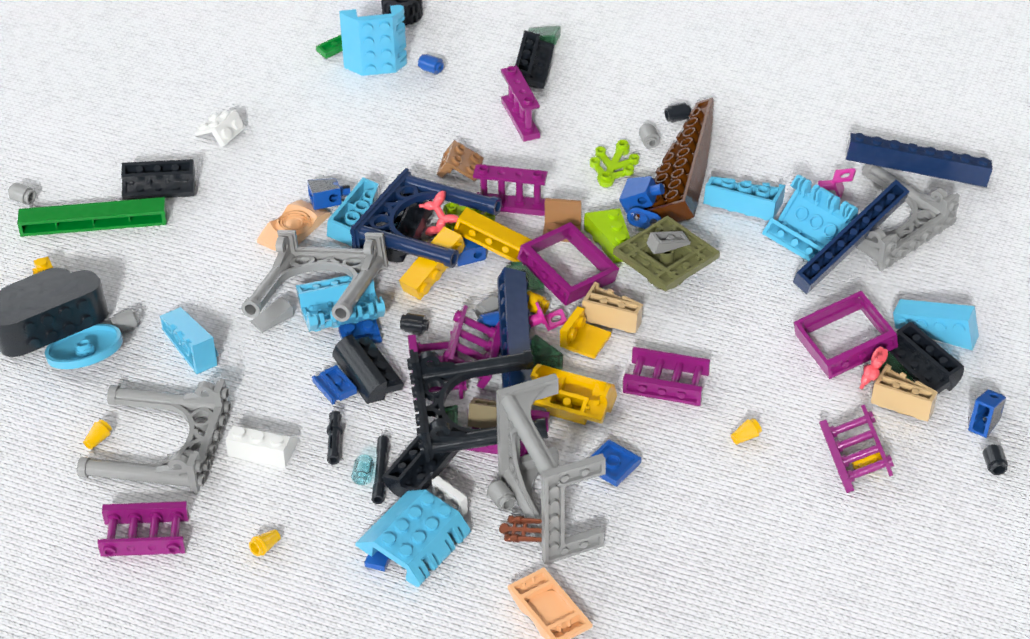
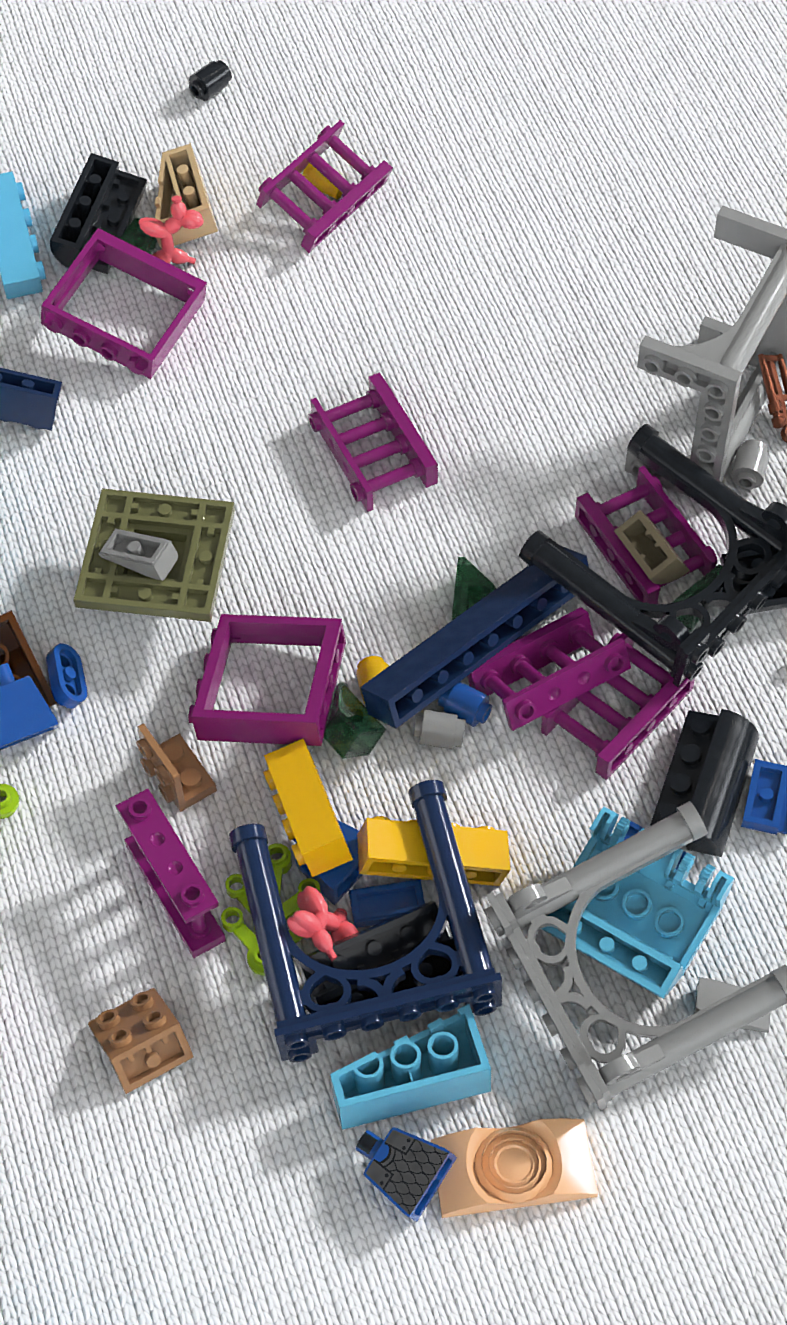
camera: 130 degrees left, 15 degrees up
(414, 323) = (563, 795): black brick -> none
(539, 318) = (396, 647): dark pink bracket -> none
(577, 396) = (526, 496): yellow piece -> none
(582, 337) = (387, 578): yellow bracket -> none
(607, 229) = (140, 687): lime wedge -> none
(612, 311) = (310, 574): tan wedge -> none
(619, 462) = (577, 399): blue plate -> none
(747, 431) = (389, 309): yellow cone -> none
(987, 405) = (139, 113): blue torso -> none

